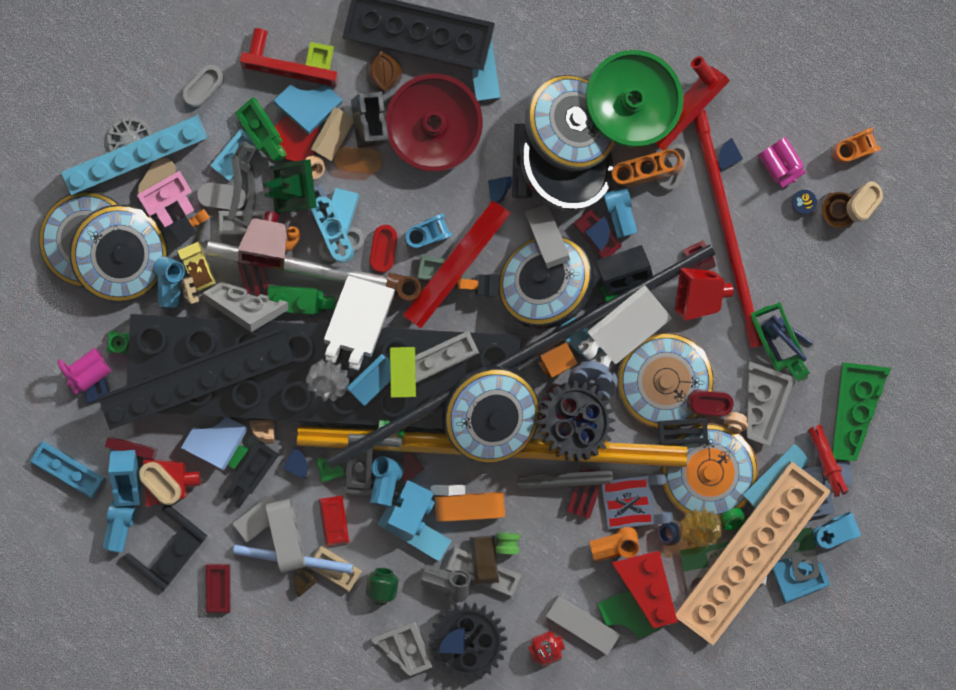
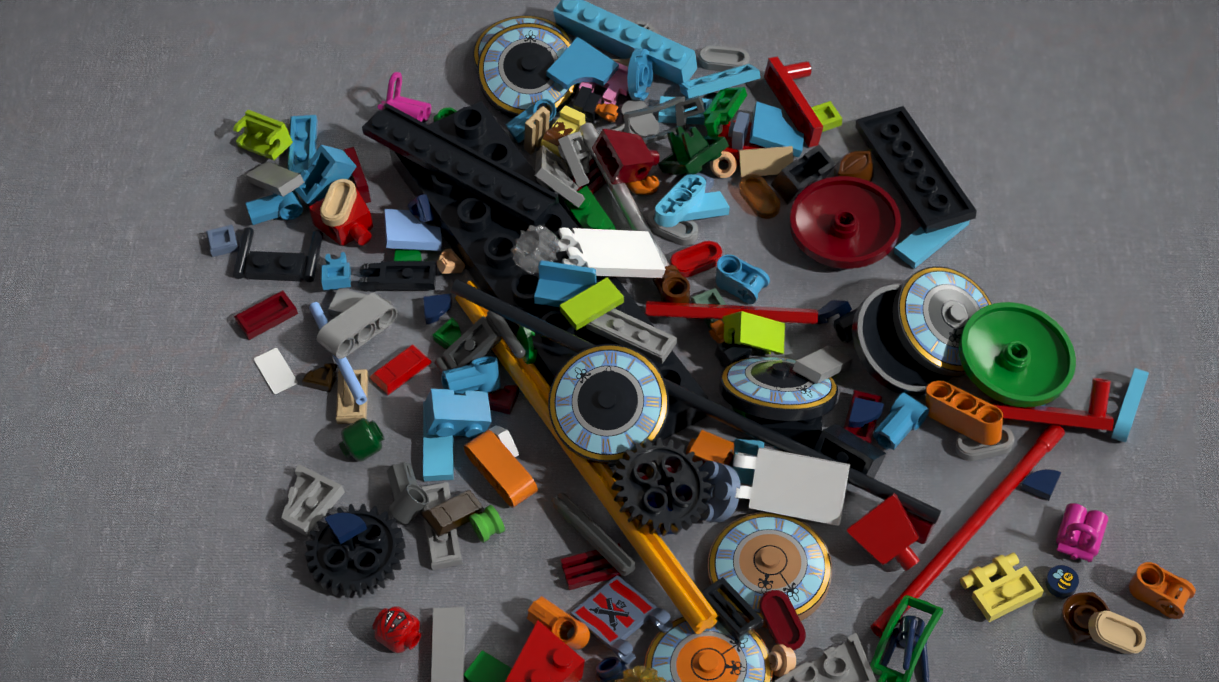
camera: 55 degrees right, 35 degrees down
(40, 497) = (262, 135): none -> lime hinge
(97, 515) = (275, 178): none -> light grey tile
(122, 581) = (222, 240): none -> sand blue tile
(148, 212) = (582, 64): none -> dark azure tile
(181, 167) = (639, 74): none -> dark azure tile
(204, 421) = (421, 207): none -> dark blue tile
(219, 519) = (336, 273): none -> dark azure plate
(227, 109) = (719, 80): none -> medium azure tile
(235, 278) = (577, 155): none -> light grey wing
(272, 608) = (275, 370): none -> white sticker
(294, 137) = (738, 130): none -> sand blue plate
(489, 264) = (755, 332): none -> lime hinge
(716, 47) = (1130, 405): none -> medium azure beam
(789, 244) = (1006, 593): none -> light yellow plate

